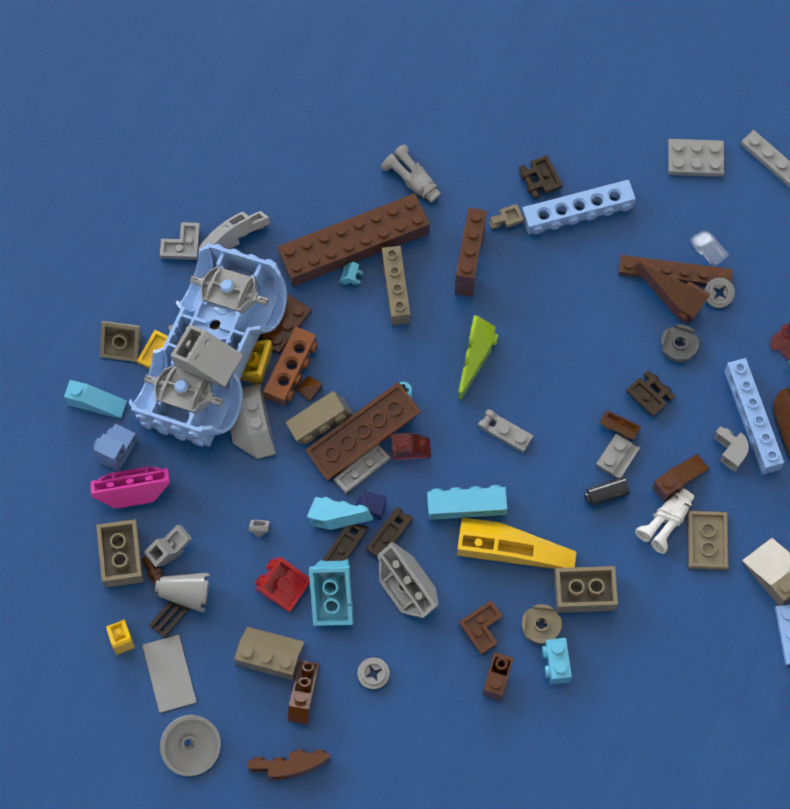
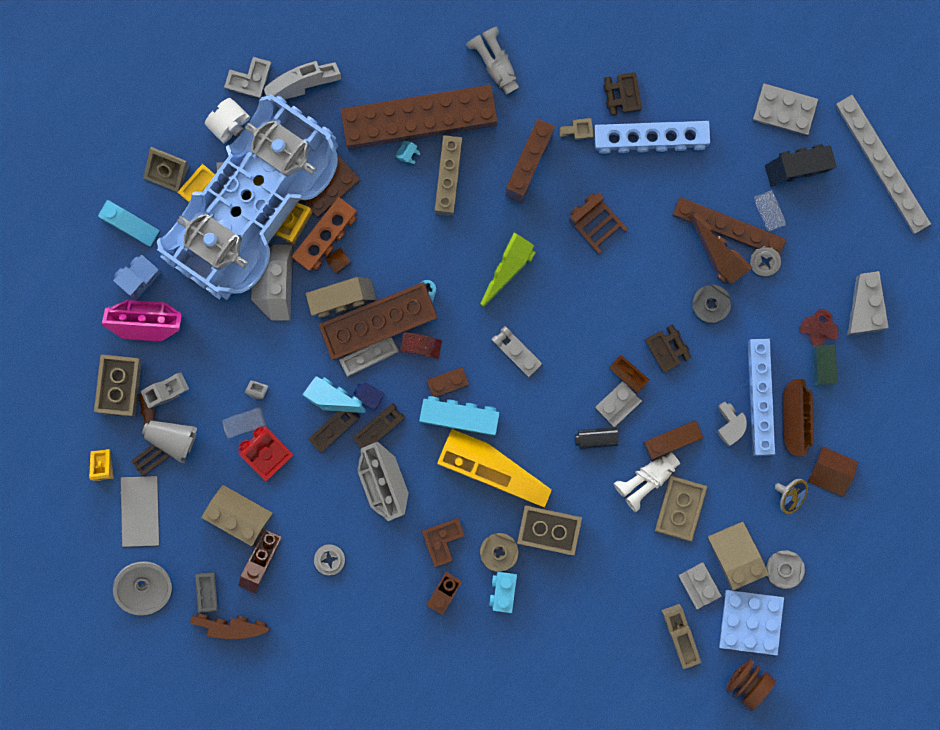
camera: 15 degrees right, 15 degrees up
(170, 282) = (227, 120): none -> white brick
(206, 356) = (240, 217): light grey slope -> none
(253, 562) = (243, 422): none -> clear slope
(256, 735) = (206, 592): none -> dark grey plate
(331, 593) = (308, 474): medium azure piece -> none
(446, 475) = (447, 382): none -> reddish brown plate
(537, 289) = (587, 213): none -> reddish brown plate
(725, 198) = (800, 164): none -> black wedge
(745, 661) = (681, 636): none -> dark tan slope
(748, 609) = (699, 585): none -> light grey plate

